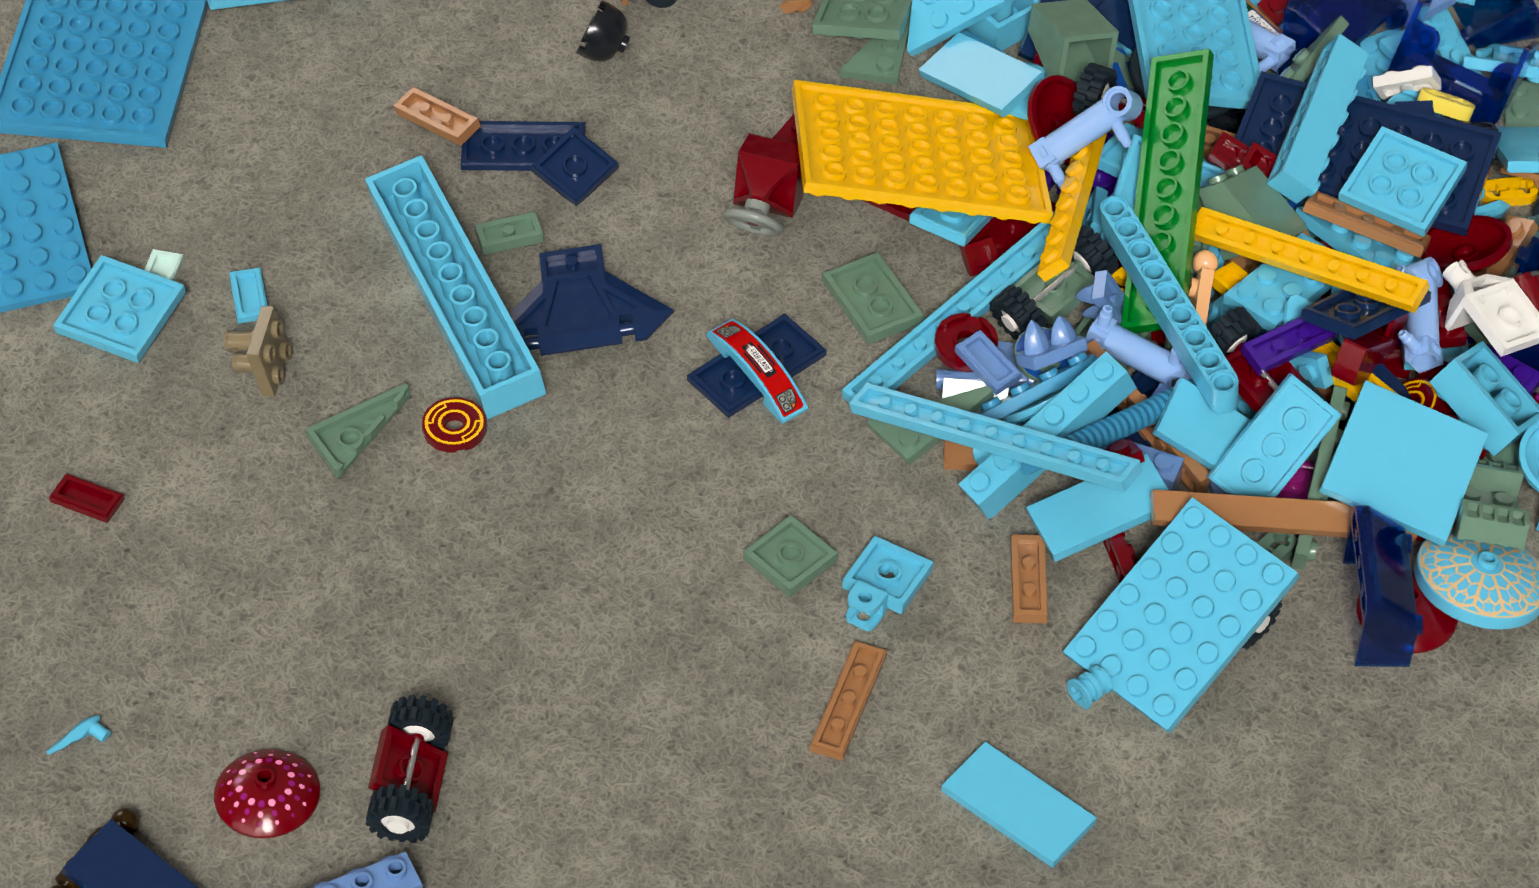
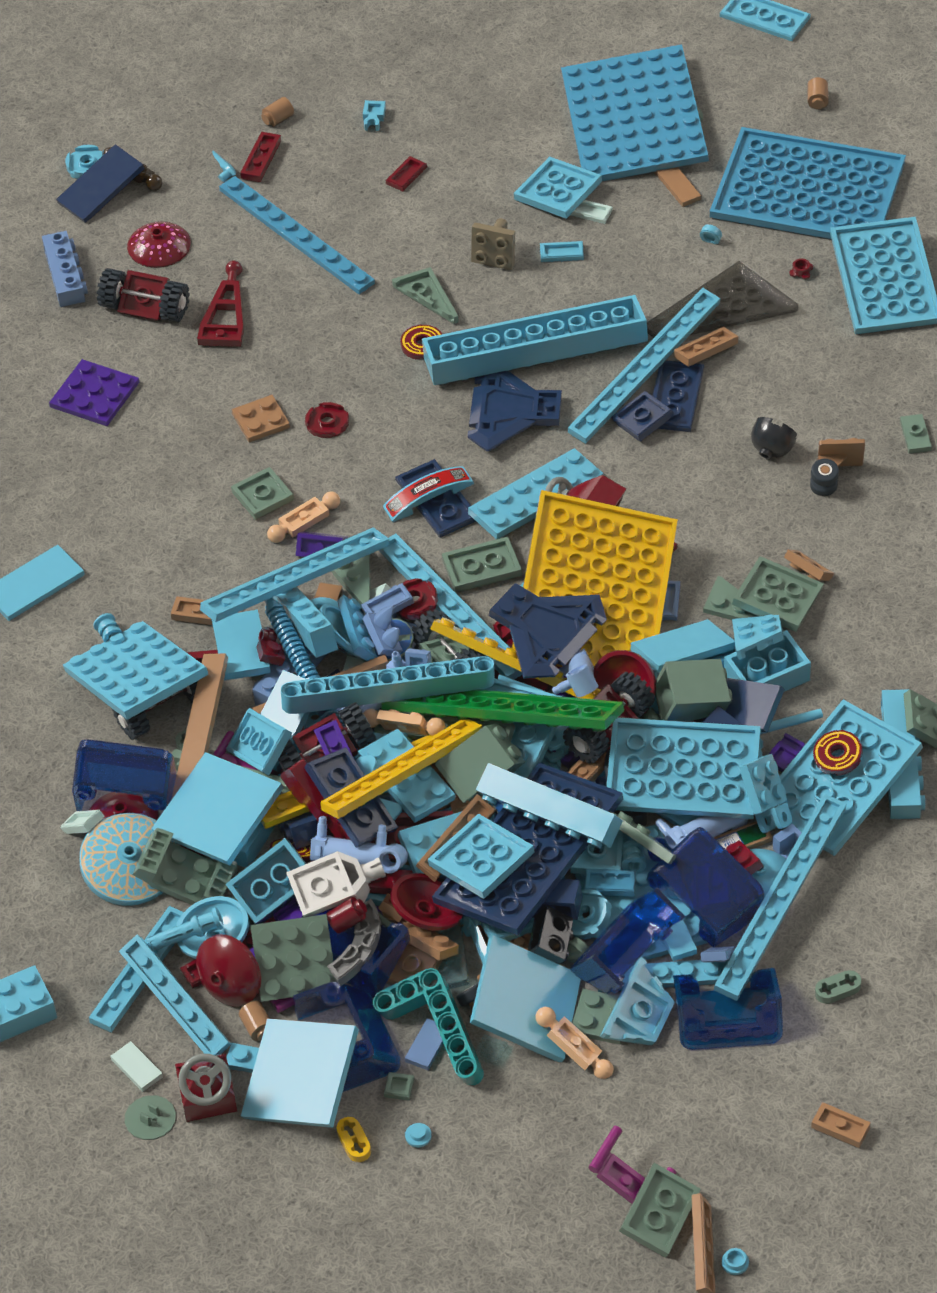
camera: 105 degrees right, 0 degrees up
(57, 686) = (260, 157): none -> dark red plate
(104, 184) = (679, 186): none -> medium nougat tile
(210, 136) = (711, 234): none -> medium azure tile
(230, 616) = (297, 235): none -> dark azure plate
(267, 44) = (801, 268): none -> dark red plate
(341, 109) = (742, 297): none -> clear smoke wing
(472, 670) = (224, 335): none -> dark red plate
(485, 169) = (643, 365): none -> medium azure plate
(508, 233) = (587, 378): sand green plate -> none
(614, 809) = (94, 392): none -> dark purple plate
(627, 525) = (327, 429): none -> dark red tile
(637, 588) = (260, 418): none -> medium nougat plate
(734, 260) = (519, 500): none -> medium azure plate
(827, 501) = (303, 517): none -> light nougat plate
(848, 700) = (141, 510): medium nougat tile -> none
(871, 472) = (313, 542): none -> dark purple panel
(876, 593) = (216, 531): medium azure plate -> none
(1015, 172) = (547, 627): none -> dark blue plate
(1231, 152) = (540, 765): dark red slope -> none
(1414, 79) = (612, 905): white plate -> none
(1443, 636) = (82, 821): none -> light aqua tile
(1447, 104) = (580, 926): light yellow beam -> none

